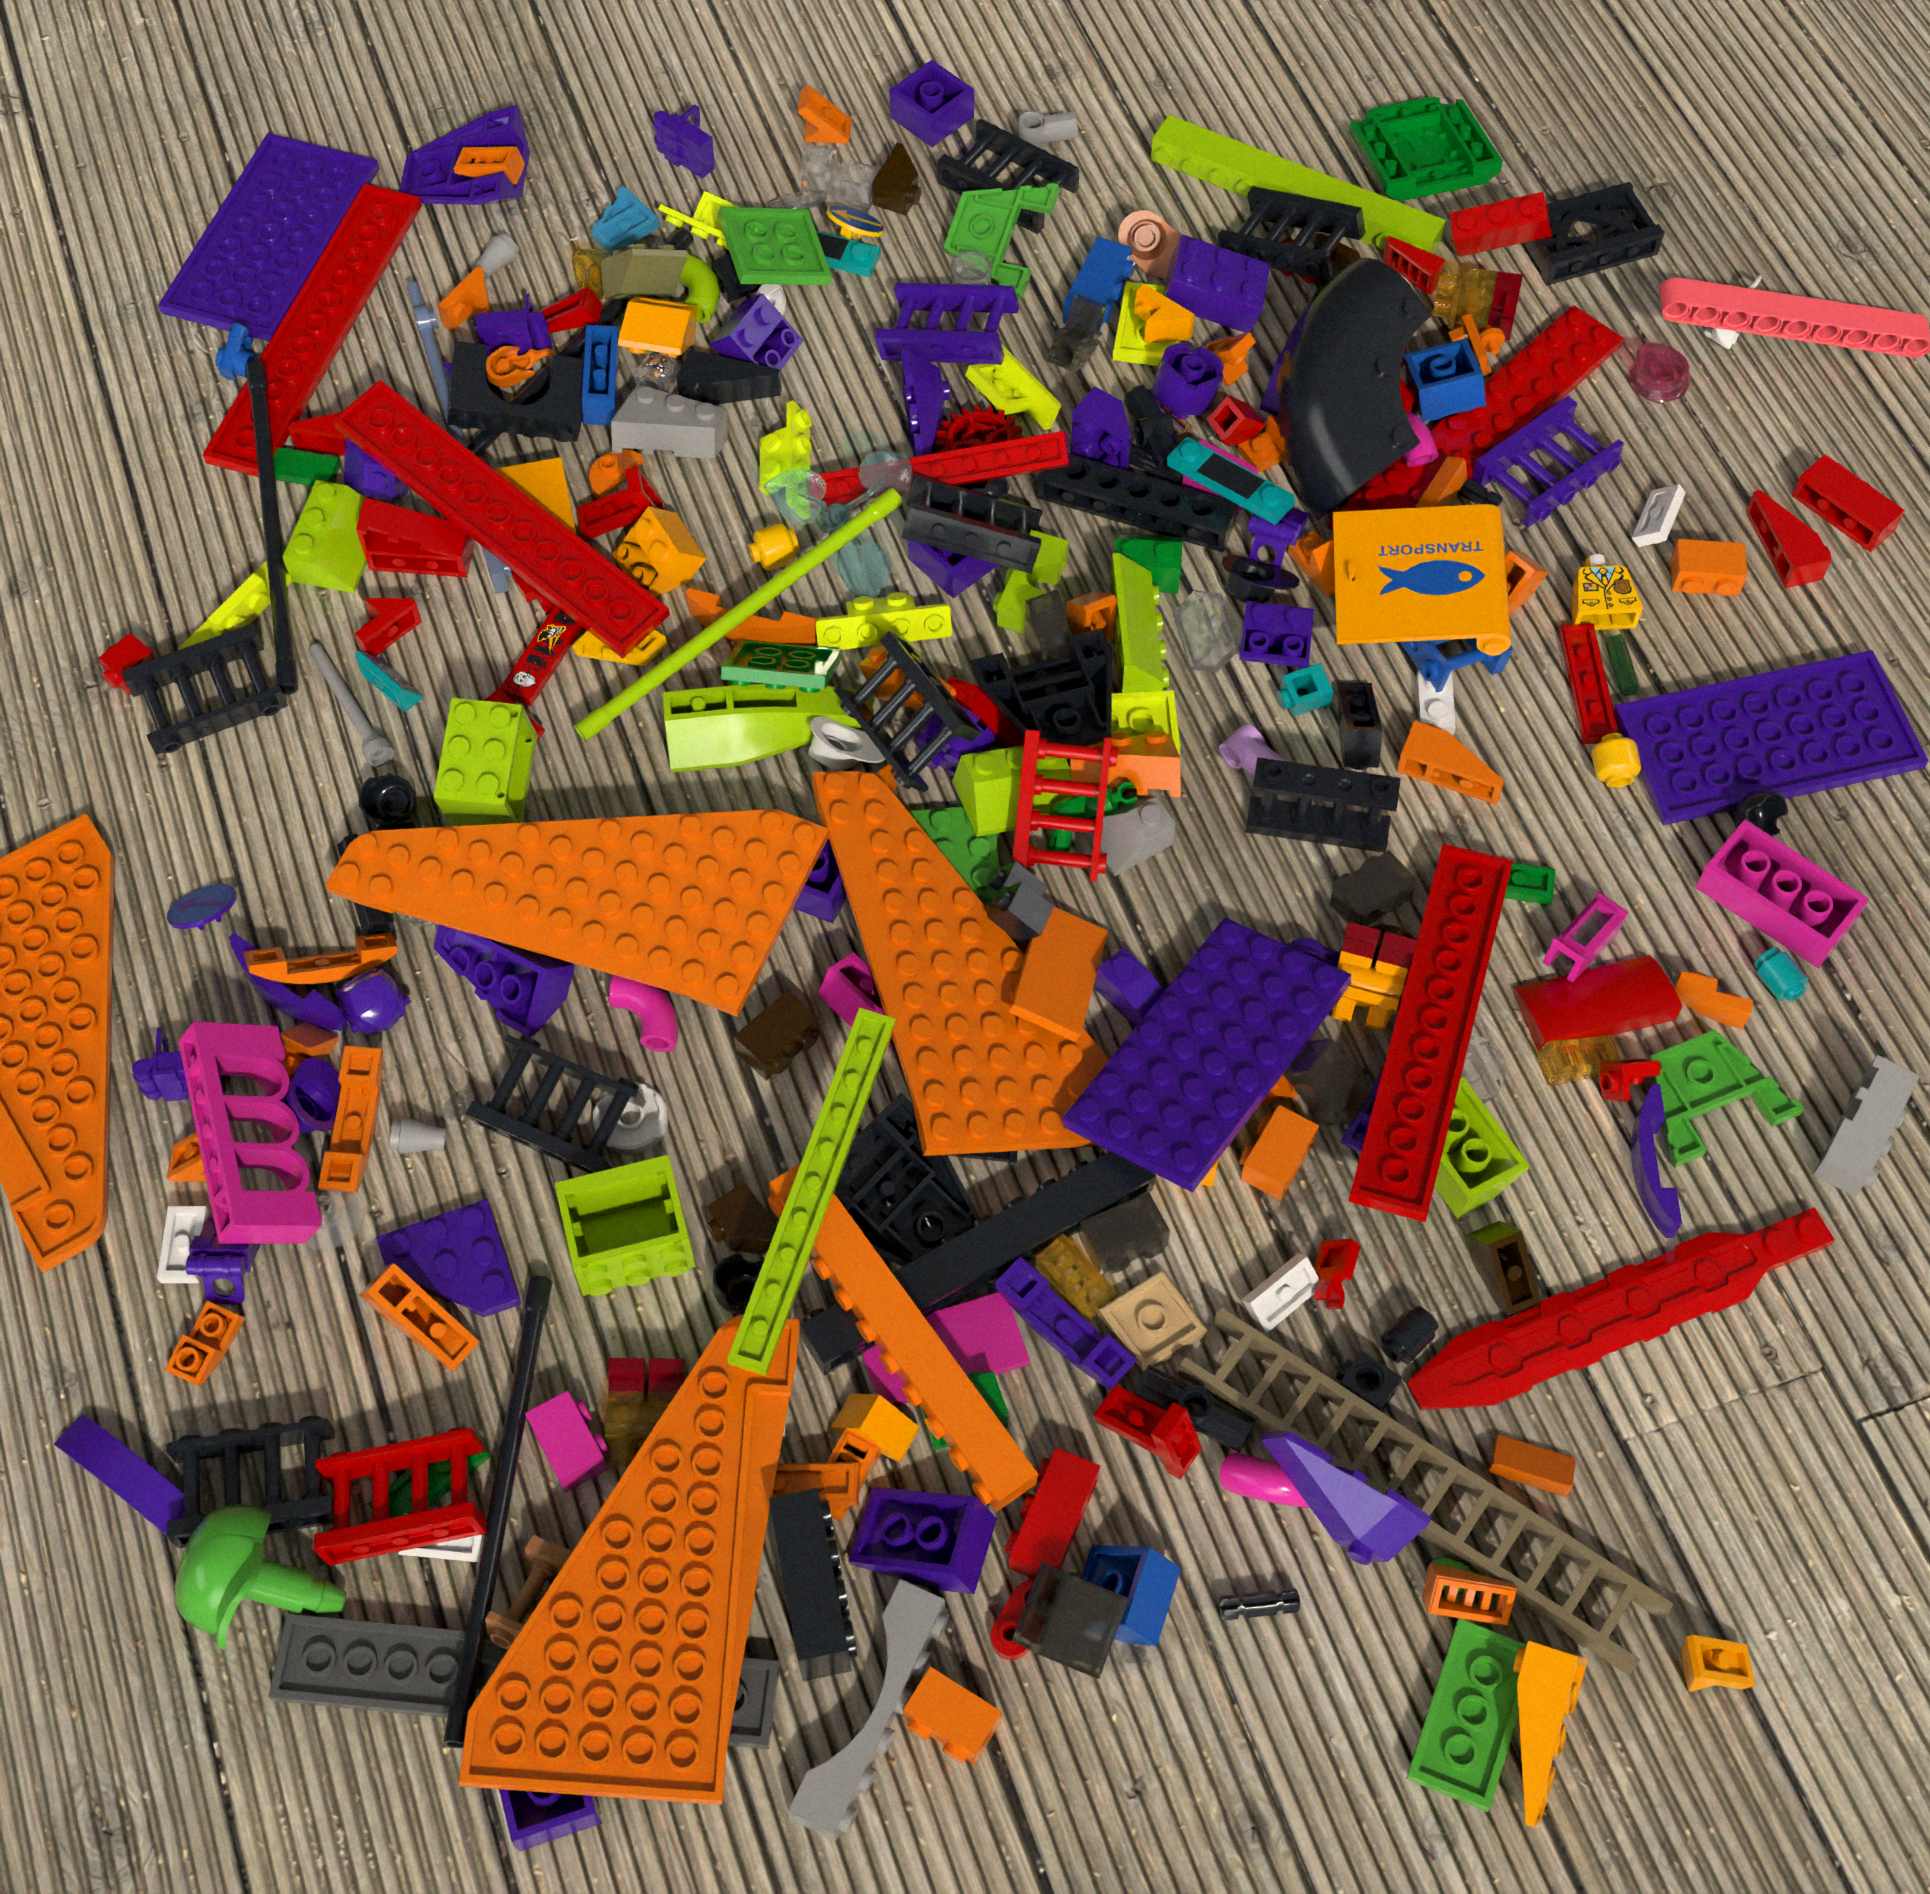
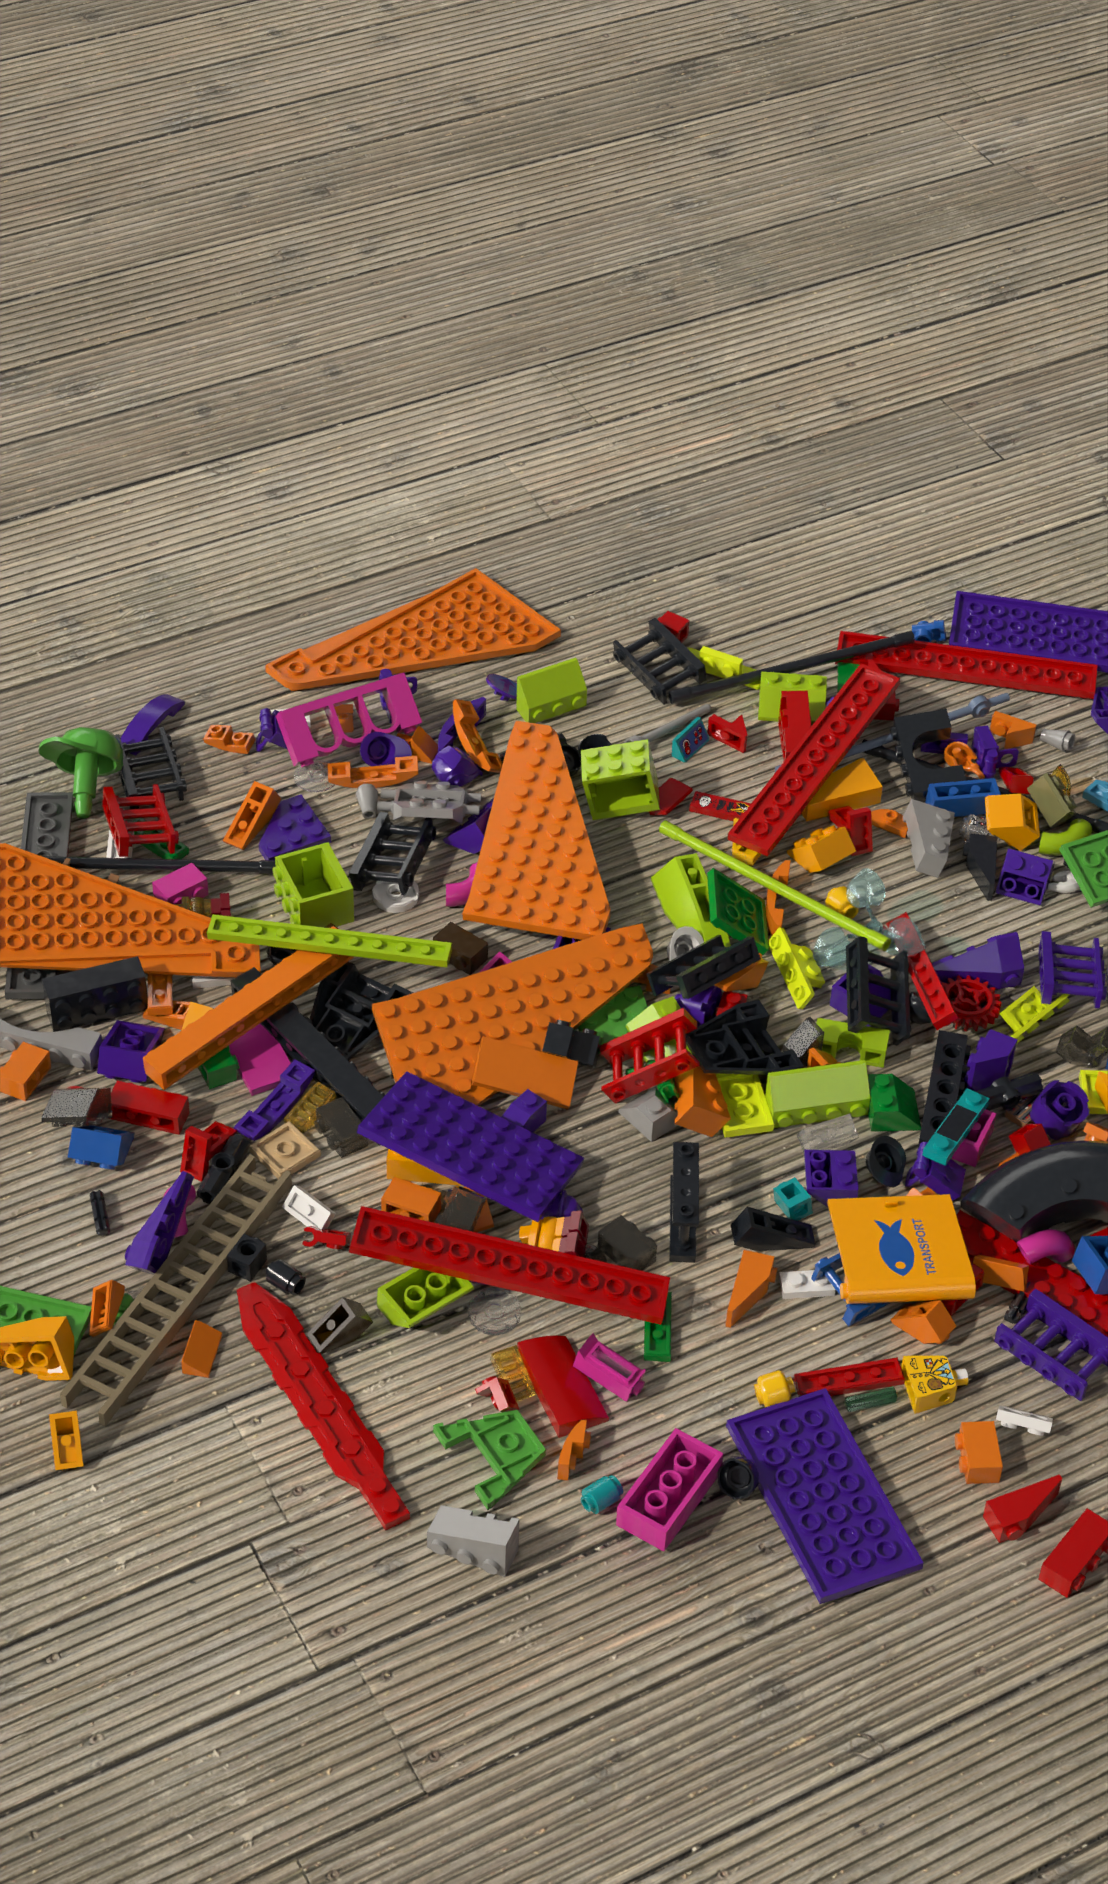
camera: 80 degrees right, 15 degrees down
(244, 841) = (551, 691): none -> lime slope
(487, 1013) = (437, 808): none -> light grey piece
(786, 447) = (926, 906): neon yellow bracket -> none
(1244, 747) = (731, 1172): lavender piece -> none
(1659, 1202) = (431, 1408): dark purple slope -> none

